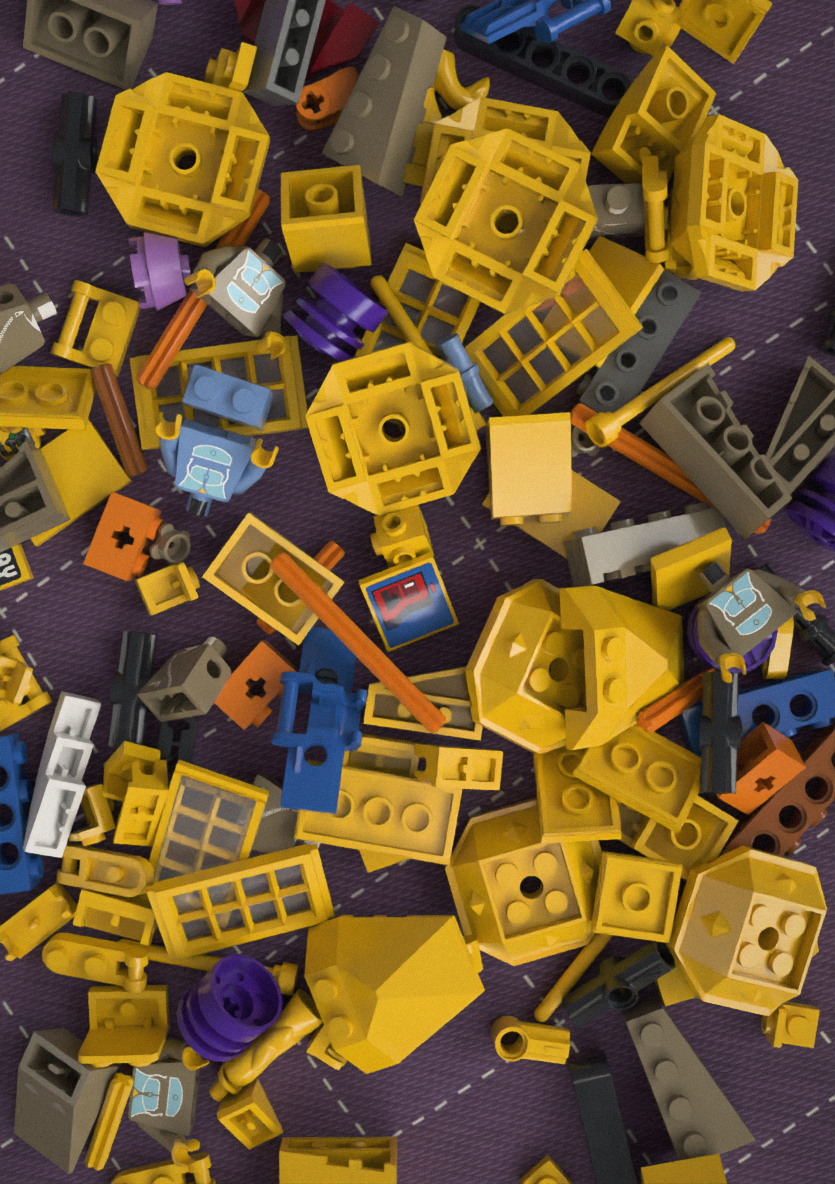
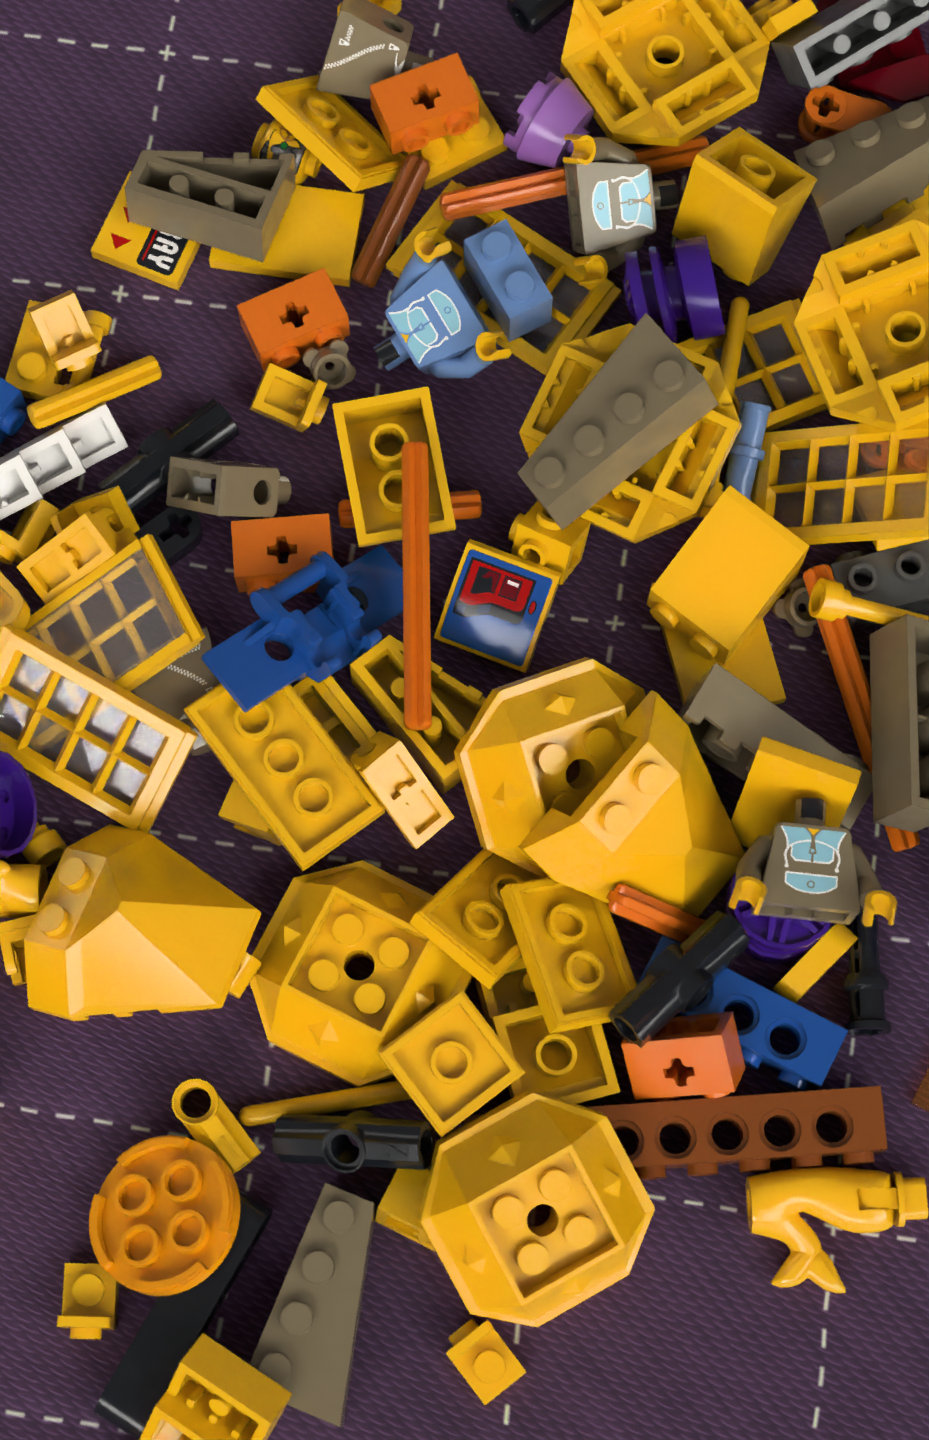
camera: 40 degrees right, 15 degrees down
(50, 692) = (94, 392): none -> yellow axle
(72, 309) = (402, 101): none -> orange brick
(388, 439) = (617, 423): none -> dark tan wedge
(553, 1116) = (165, 1216): none -> light orange tile

